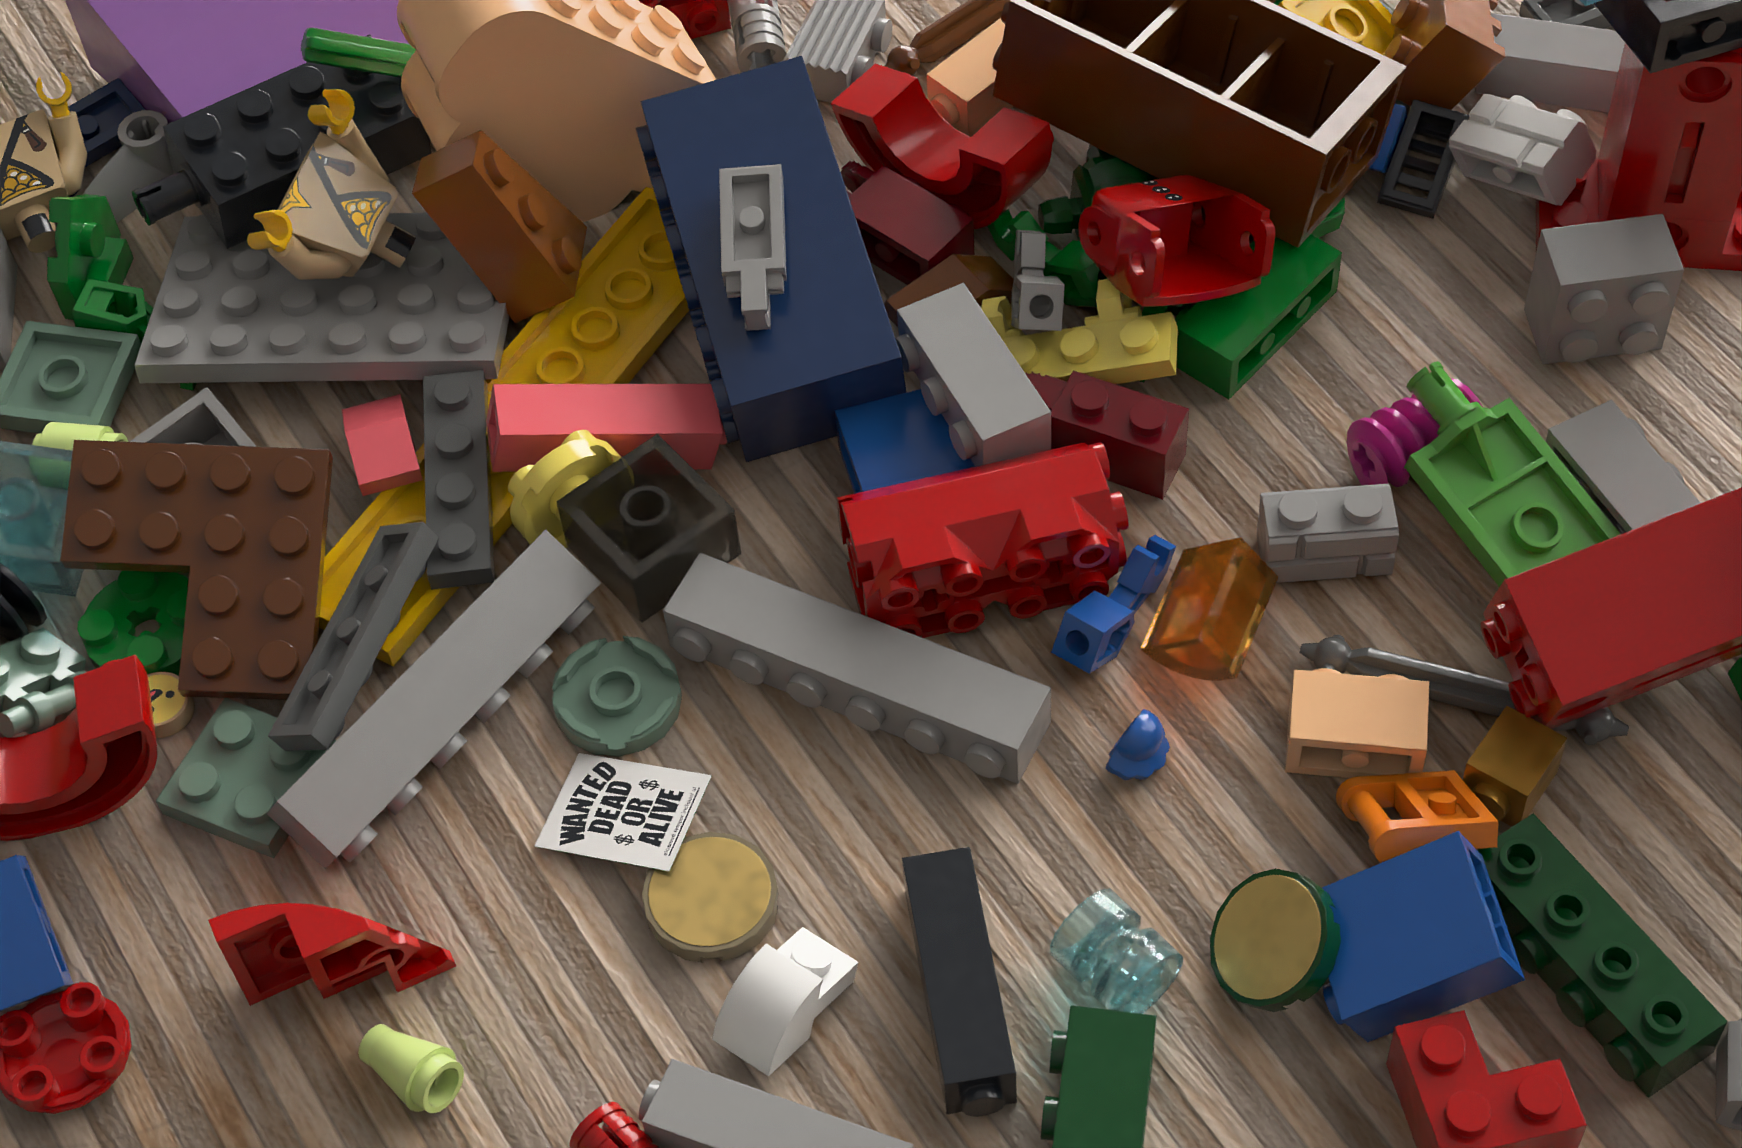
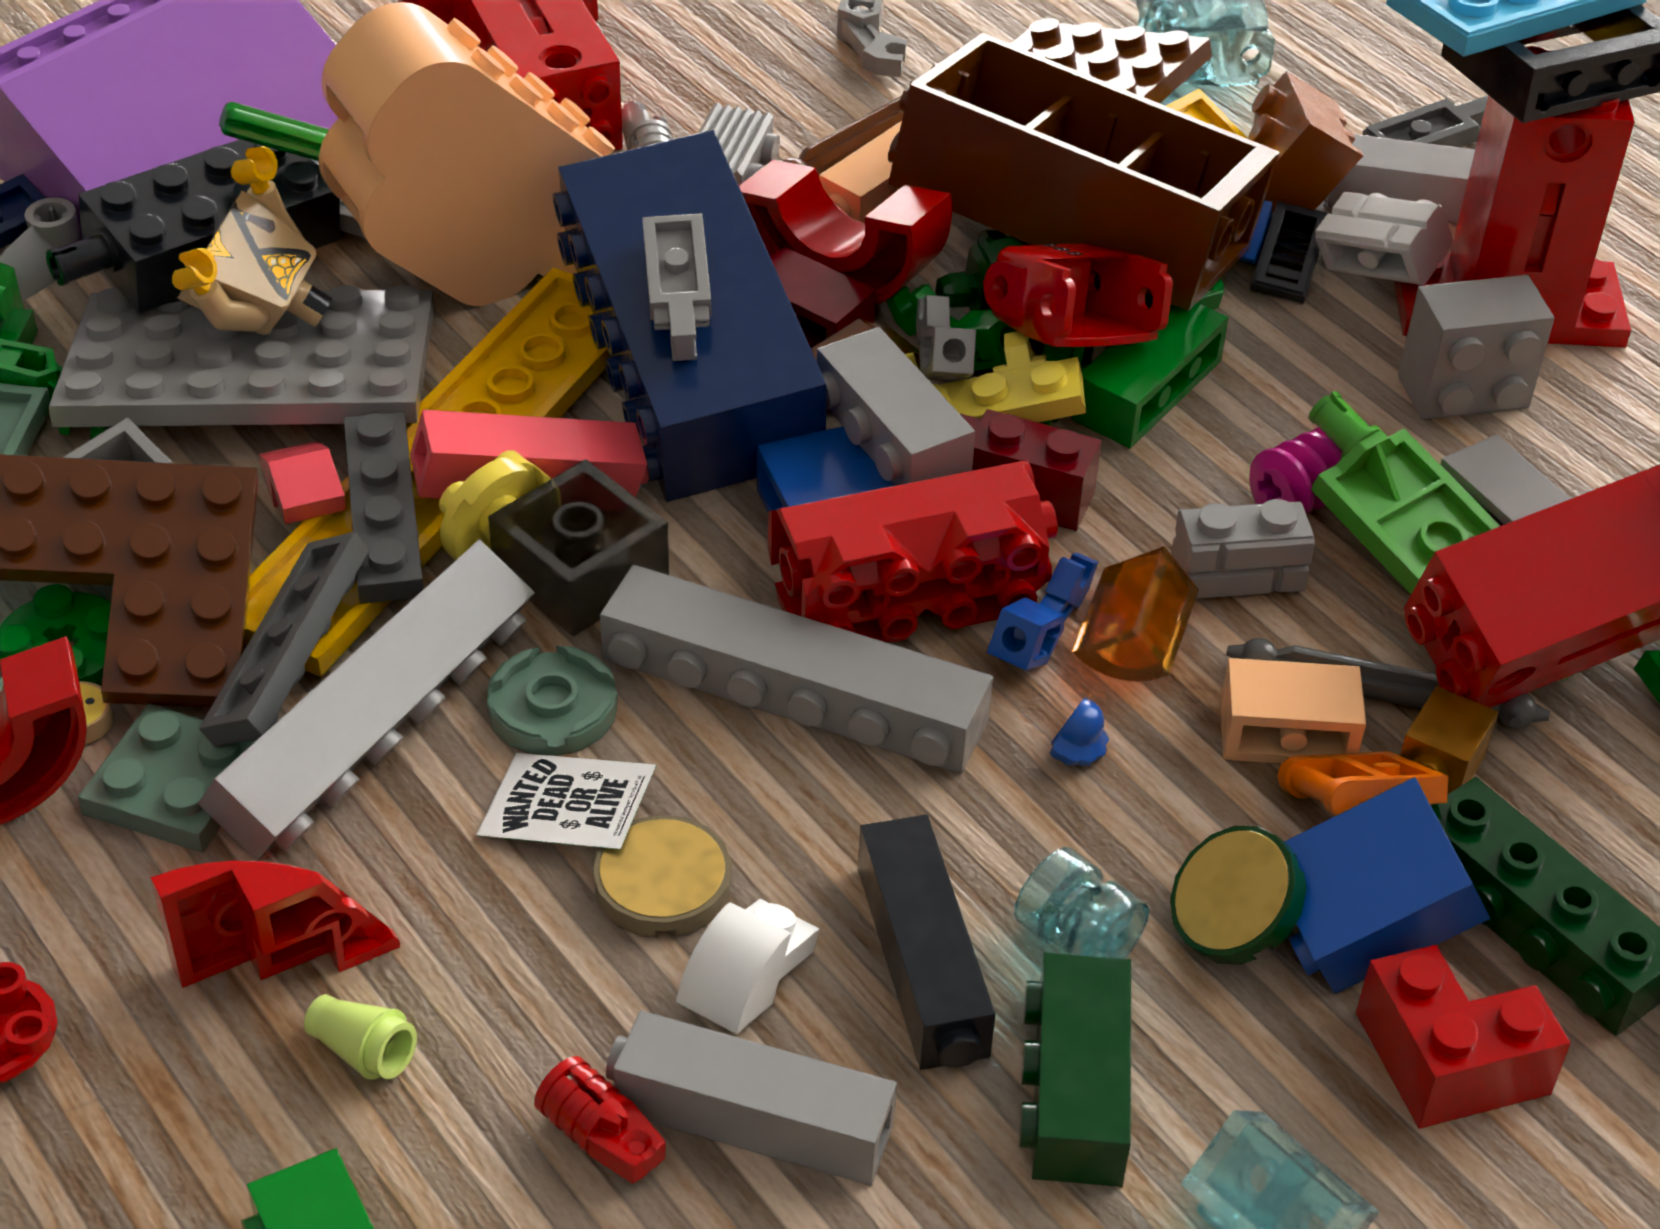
camera: 10 degrees left, 10 degrees down
(503, 224) = (421, 280): dark orange wedge -> none

